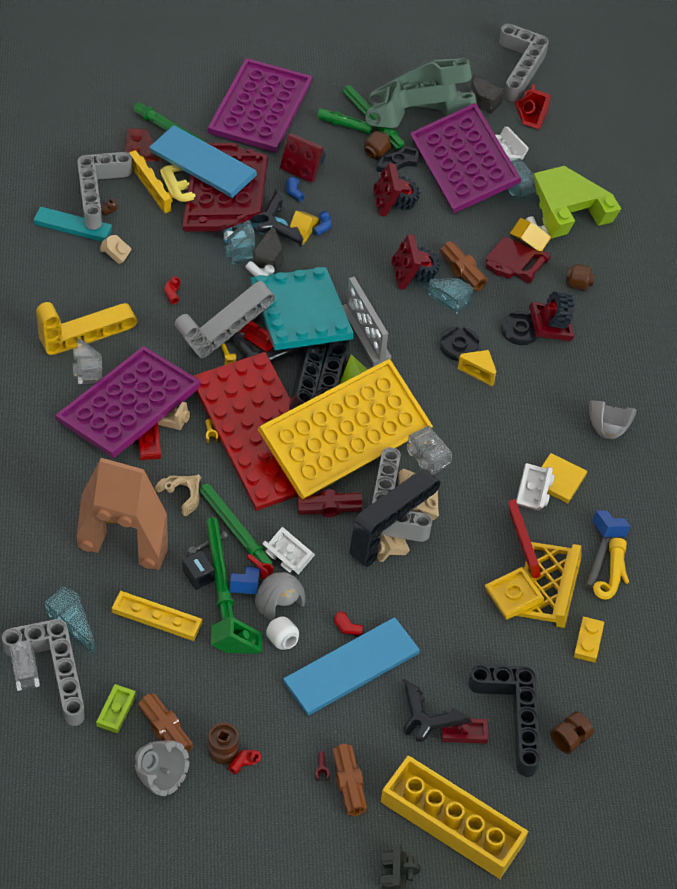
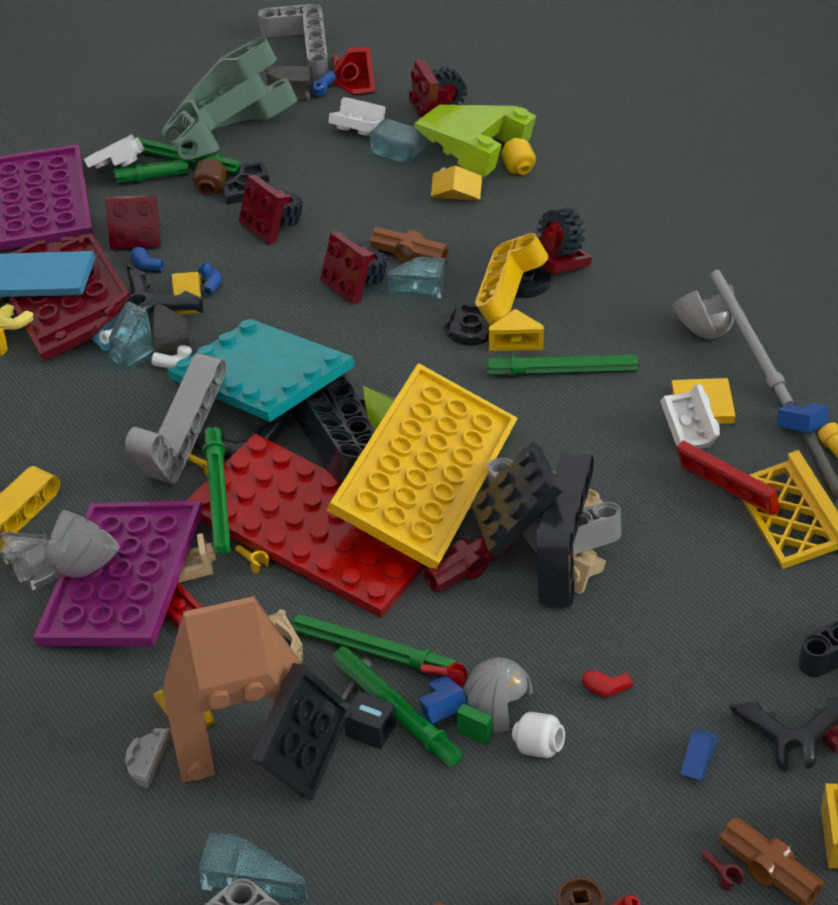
camera: 25 degrees left, 10 degrees down
(65, 522) = (145, 755): none -> light grey tile
(112, 372) = (79, 546): none -> light grey hair
(145, 557) = (301, 731): none -> black plate
(157, 615) = (359, 805): yellow plate -> none
(171, 288) = (76, 429): red arm -> none
(229, 352) = (214, 452): none -> green axle
(236, 637) = (483, 773): green slope -> none
(253, 606) = (474, 724): none -> green tile
(257, 336) = (235, 426): red hinge -> none
(289, 550) = (465, 637): white bracket -> none
(328, 97) = (121, 152): none -> white plate
(351, 666) = (650, 730): dark azure tile -> none
(363, 693) = (698, 754): none -> blue piece
(366, 324) = (368, 367): light grey fence -> none
(372, 482) = (515, 498): none -> black plate
(429, 450) = (550, 438): clear brick -> none
(465, 158) = (323, 144): magenta plate -> none
(492, 404) = (561, 364): none -> green axle
(499, 322) = (505, 273): none -> yellow beam
(504, 106) = (320, 86): none -> blue arm
(512, 257) = (457, 218): dark red piece -> none
(514, 593) = (767, 542): yellow tile -> none
(573, 152) = (435, 89): none -> dark red plate
(580, 277) = (546, 198): reddish brown head -> none
(588, 233) = (518, 156): none -> yellow head
(615, 489) = (774, 379): none -> light grey bar

